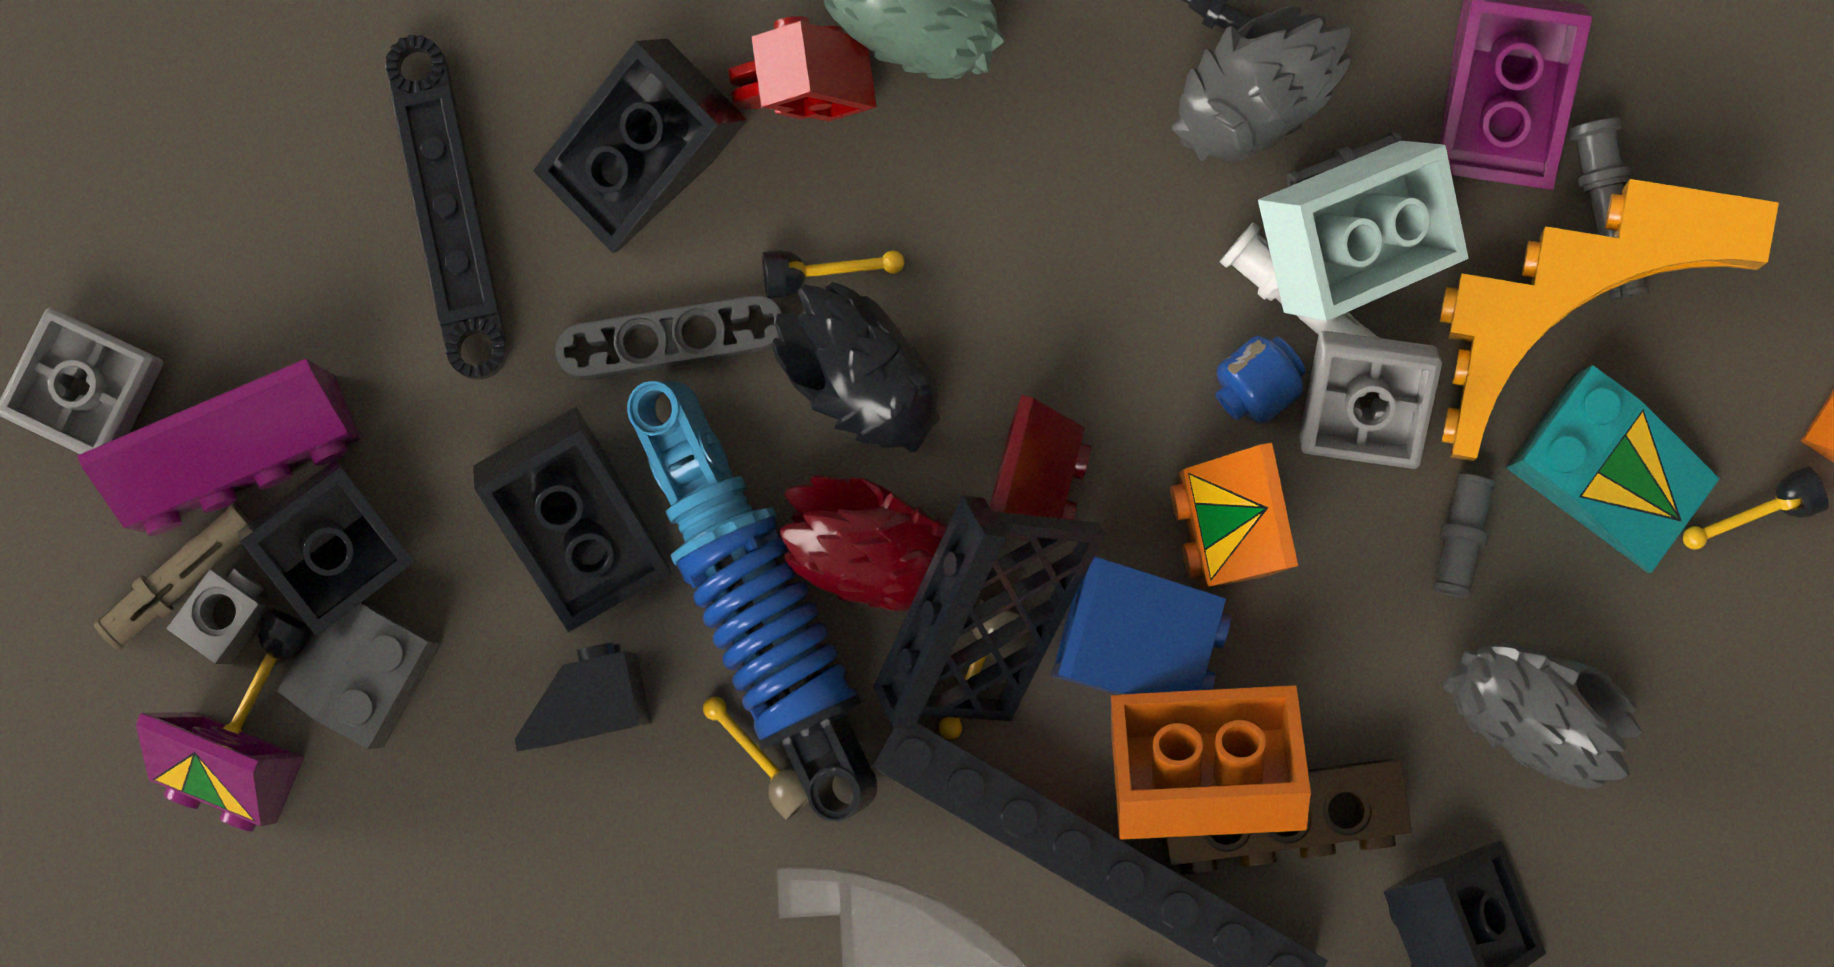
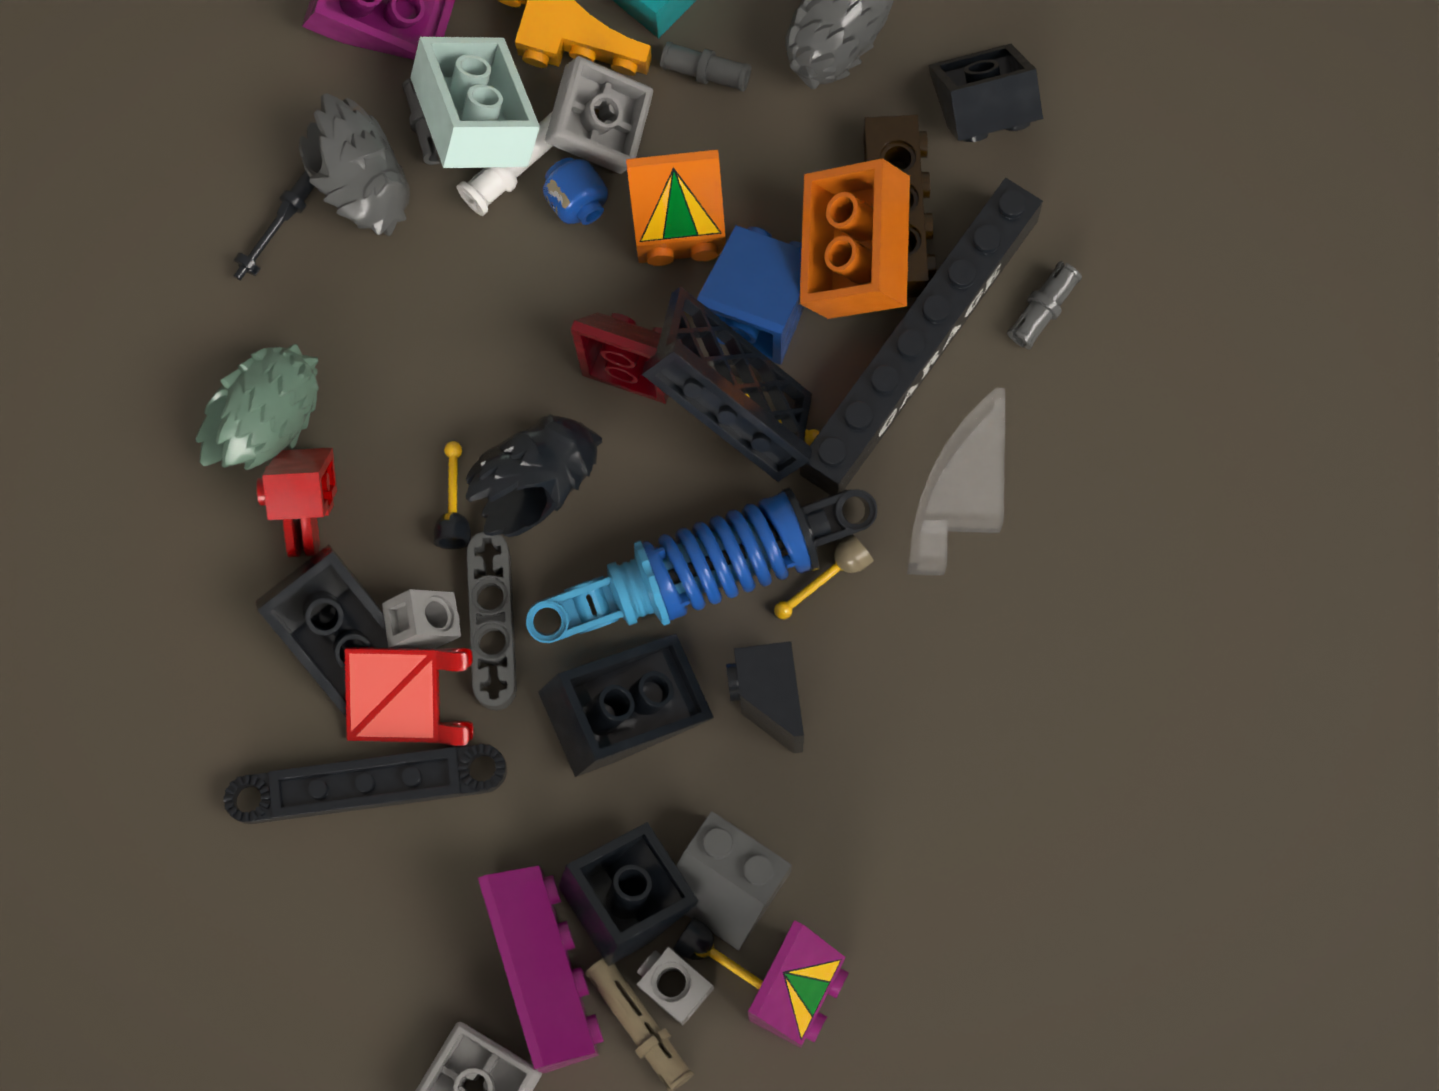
camera: 75 degrees left, 10 degrees down
(556, 235) = (397, 697): none -> flag
(649, 230) = (421, 619): none -> light grey brick
(860, 541) = (668, 474): dark red head -> none

